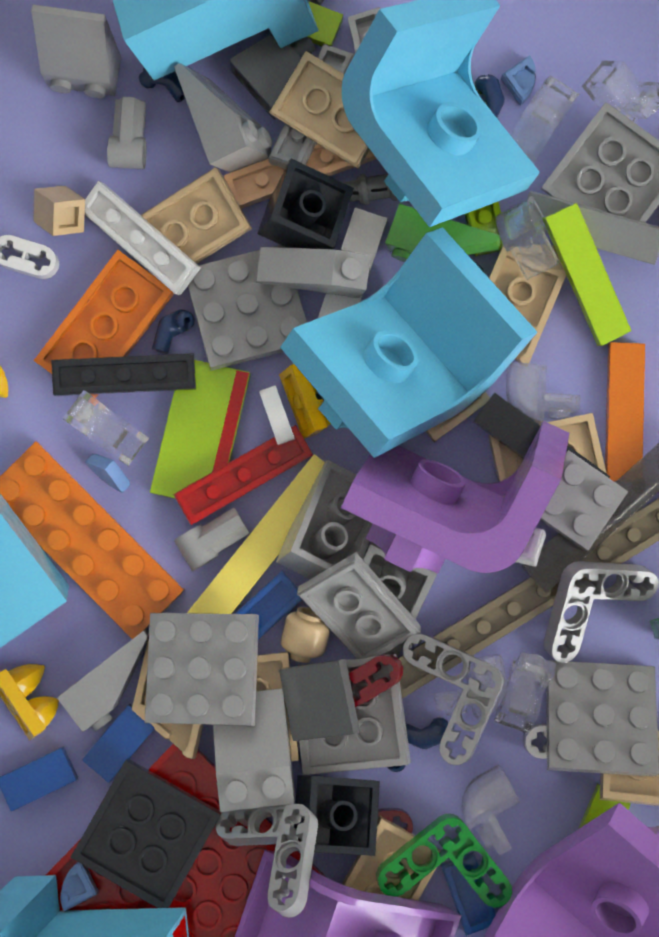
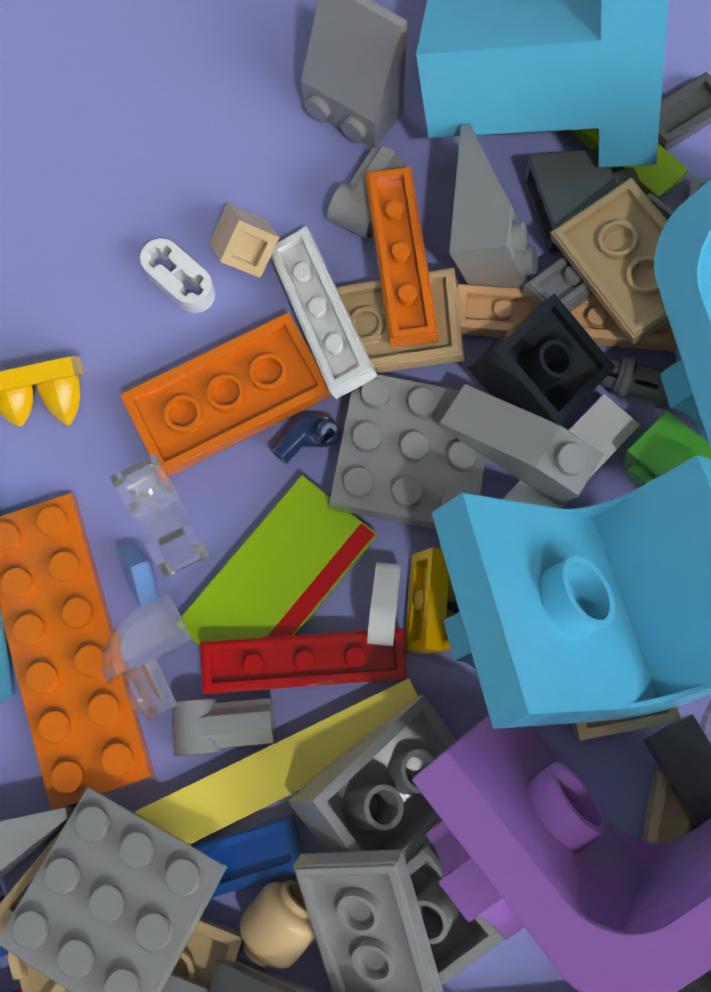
camera: 30 degrees right, 10 degrees down
(123, 374) = (218, 461): black tile -> none
(134, 519) = (133, 651): none -> clear brick
(170, 81) = (442, 150): dark blue arm -> none
(176, 175) = (401, 257): none -> orange tile

